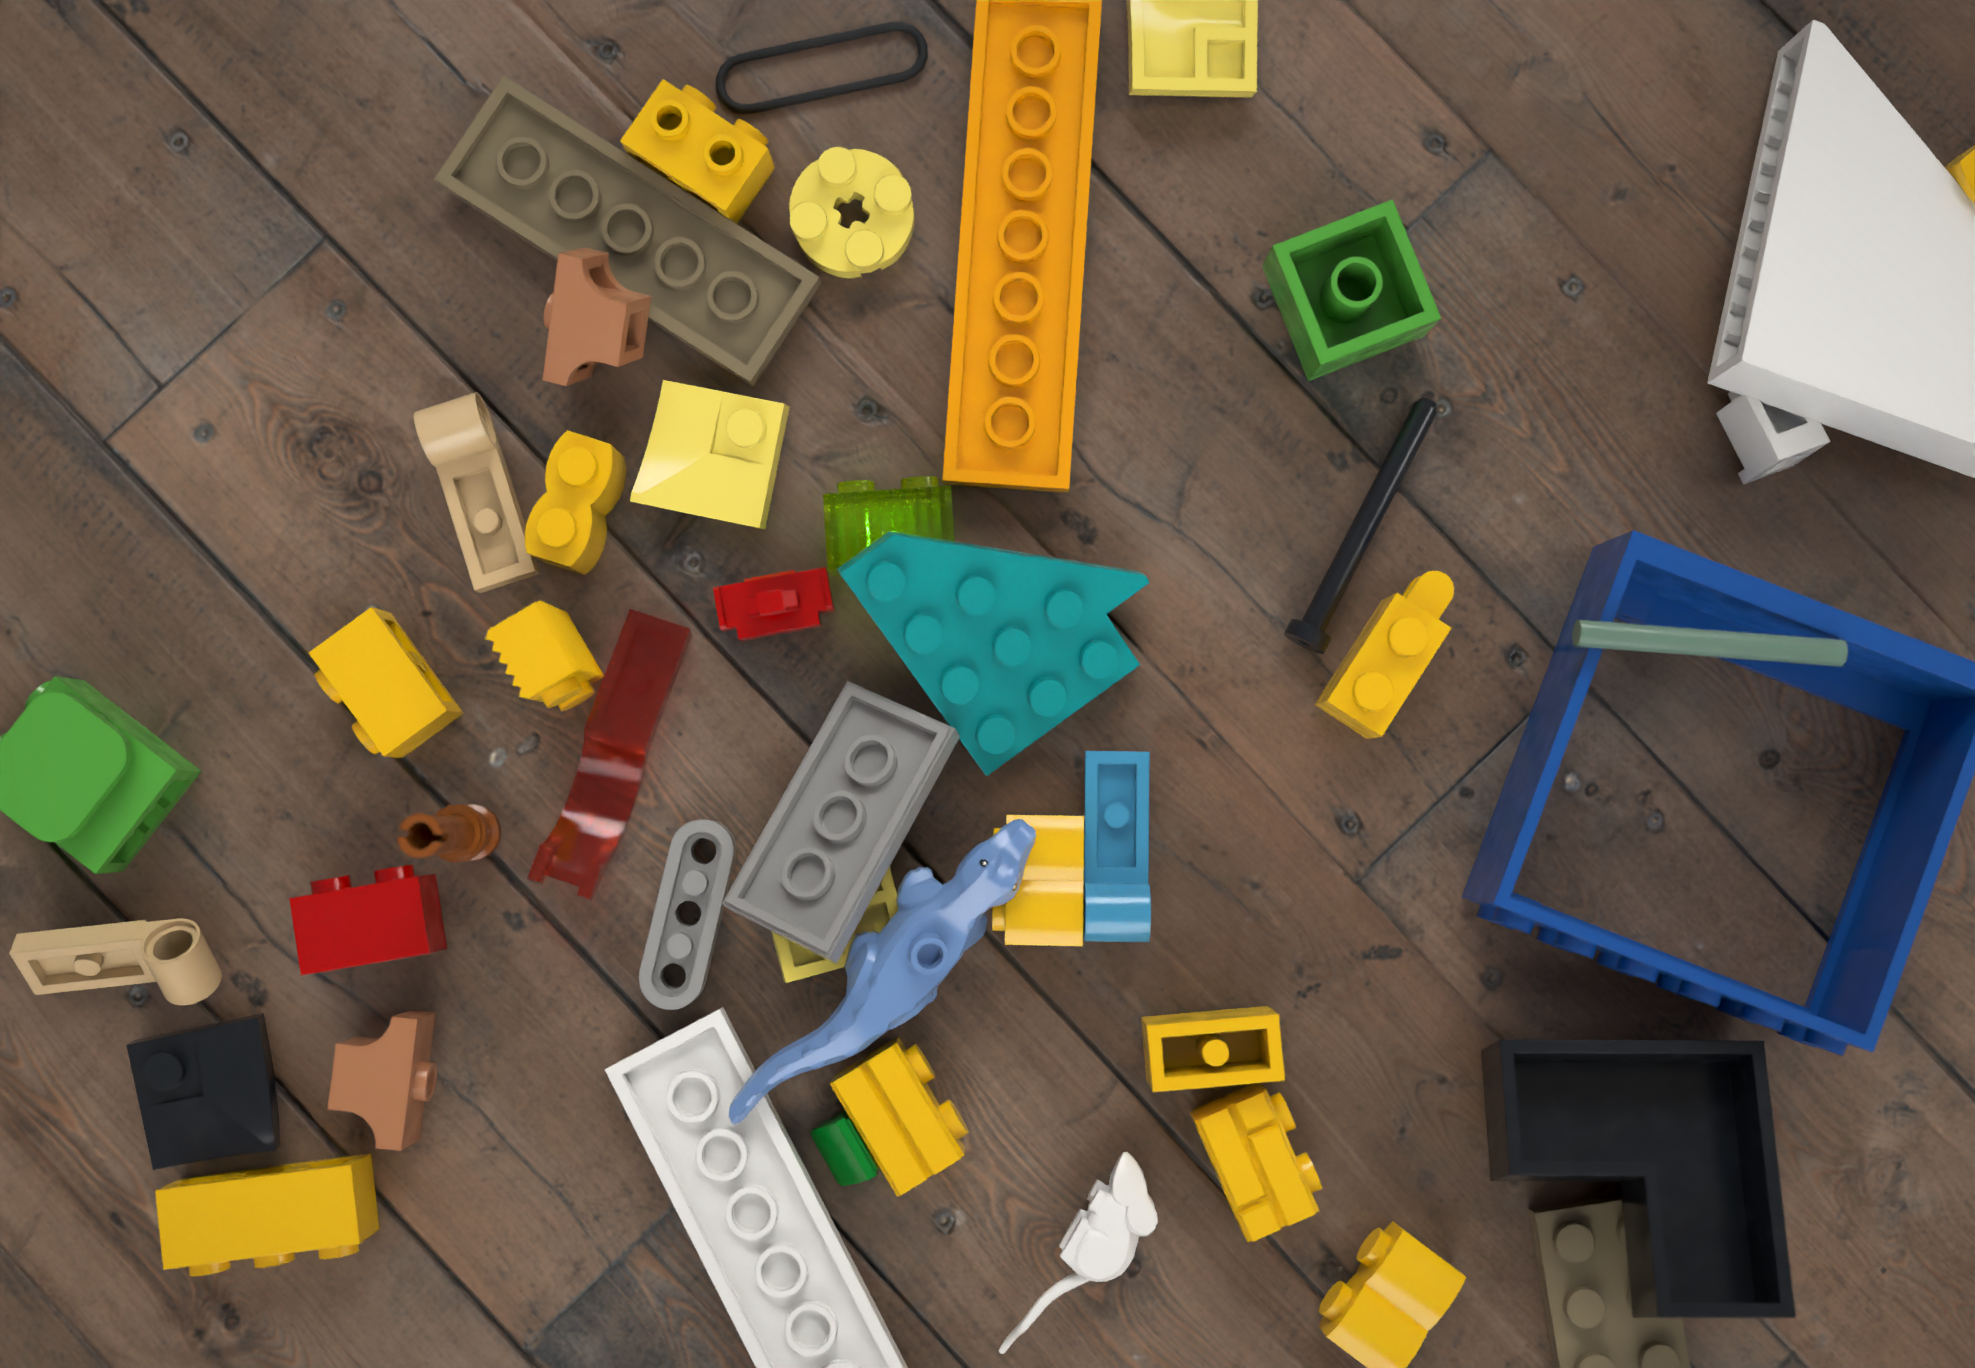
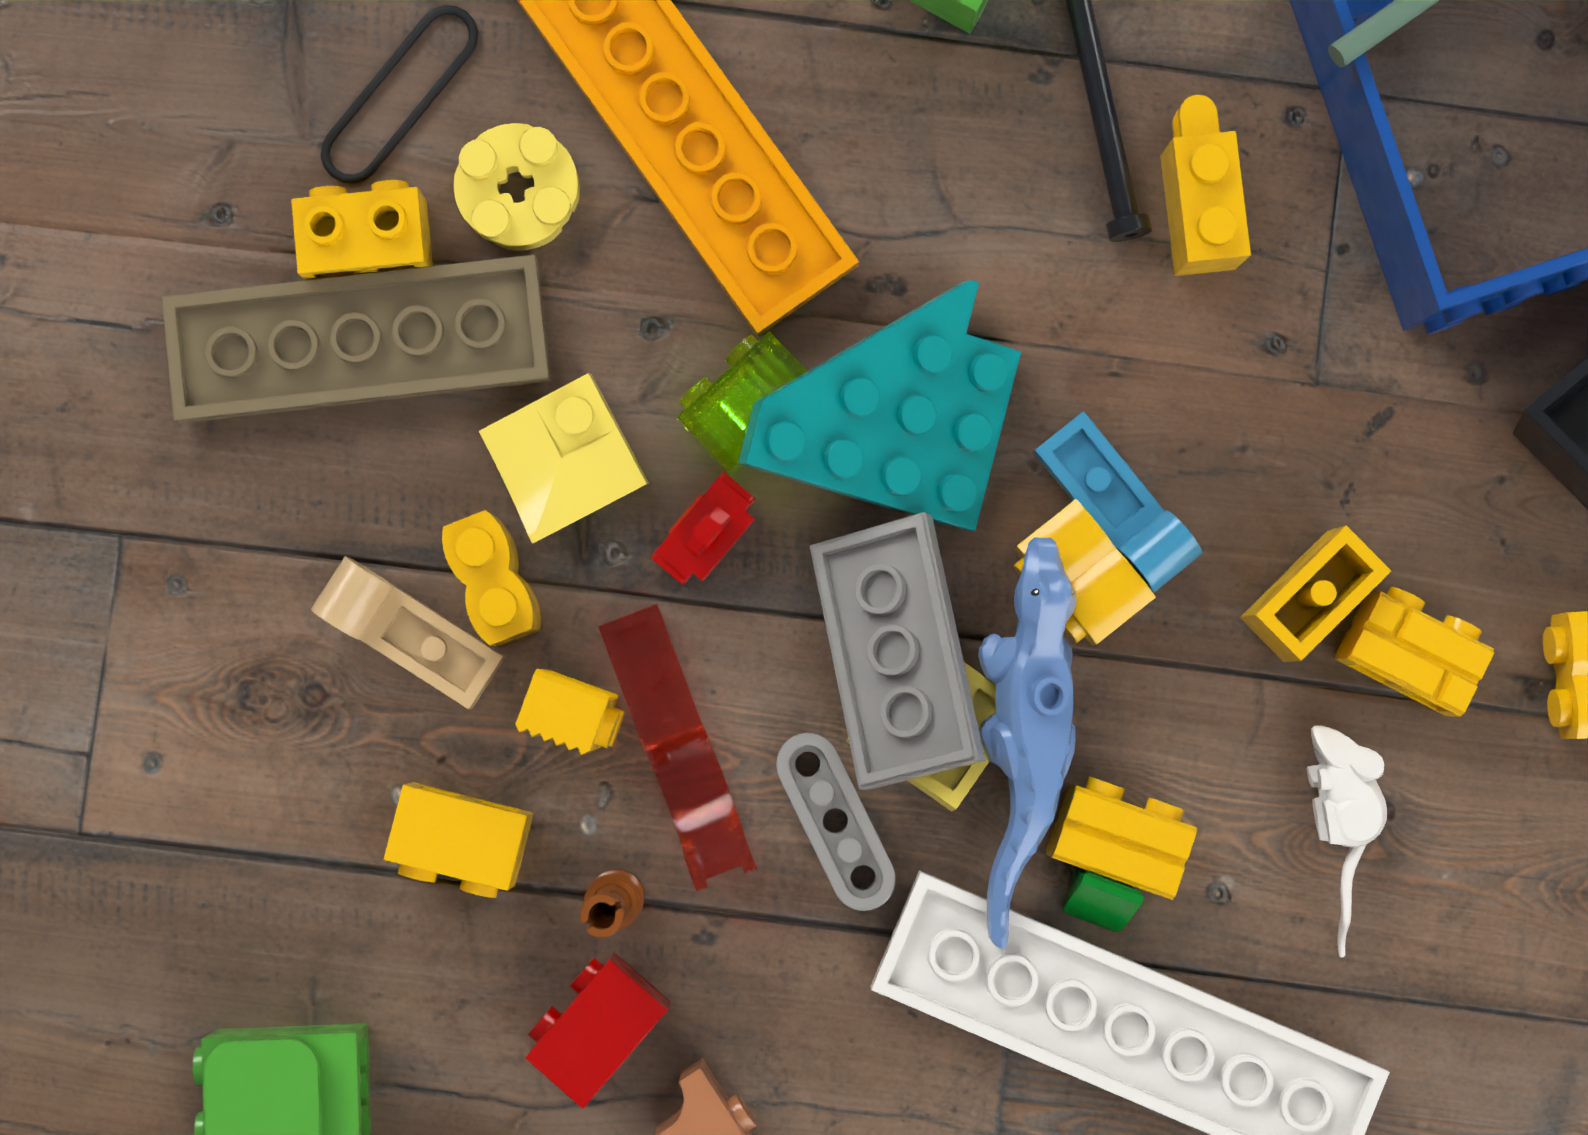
camera: 45 degrees left, 0 degrees up
(591, 318) = (388, 427): nougat brick -> none

